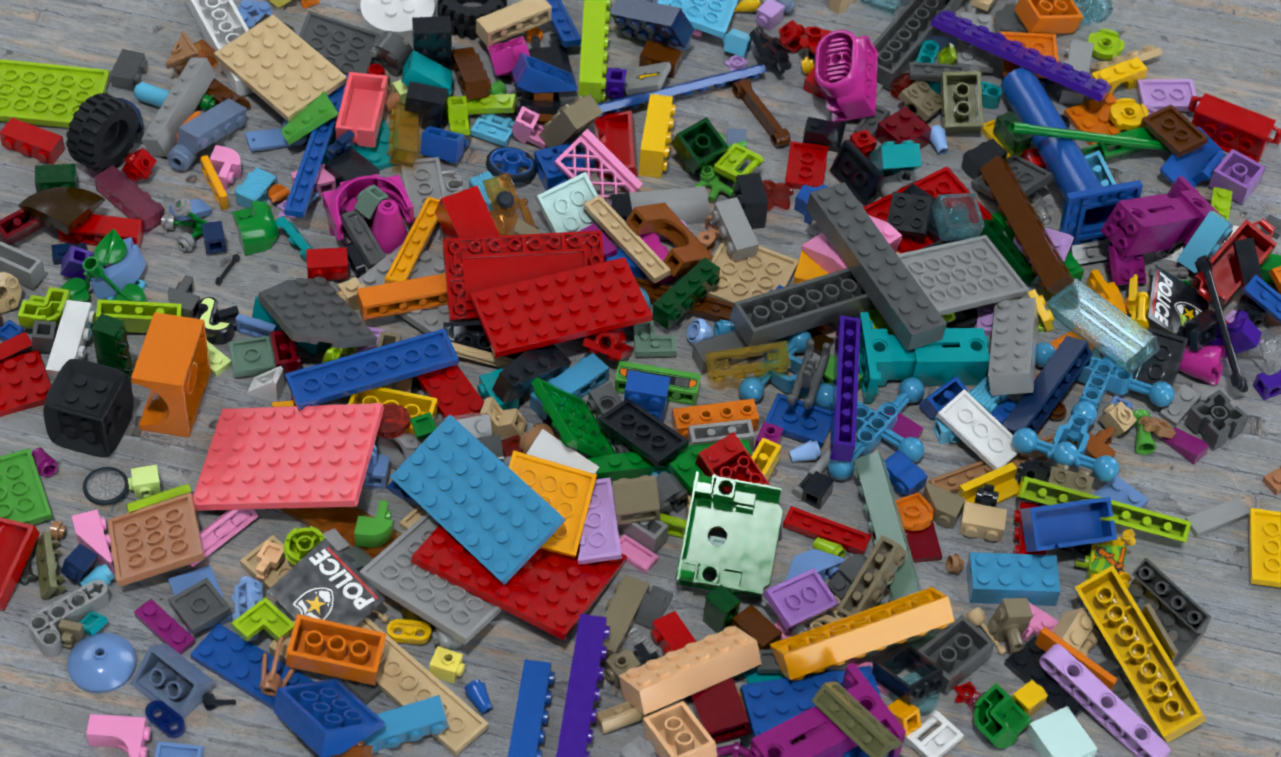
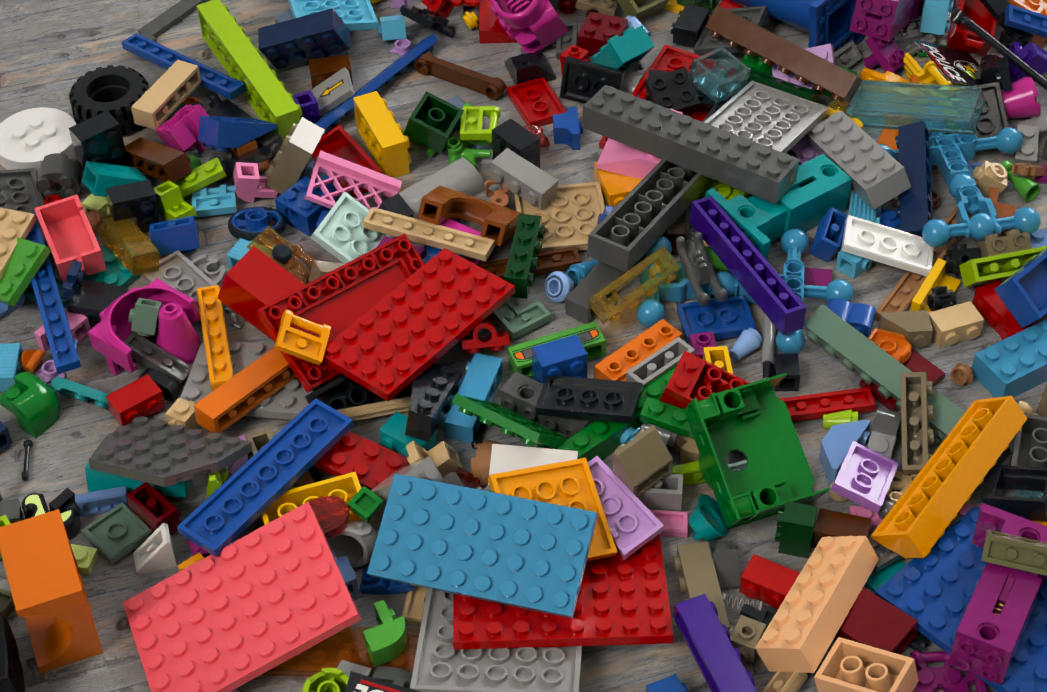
camera: 25 degrees left, 5 degrees down
(459, 281) = (301, 343): none -> light orange plate
(664, 567) = (707, 520): none -> teal piece

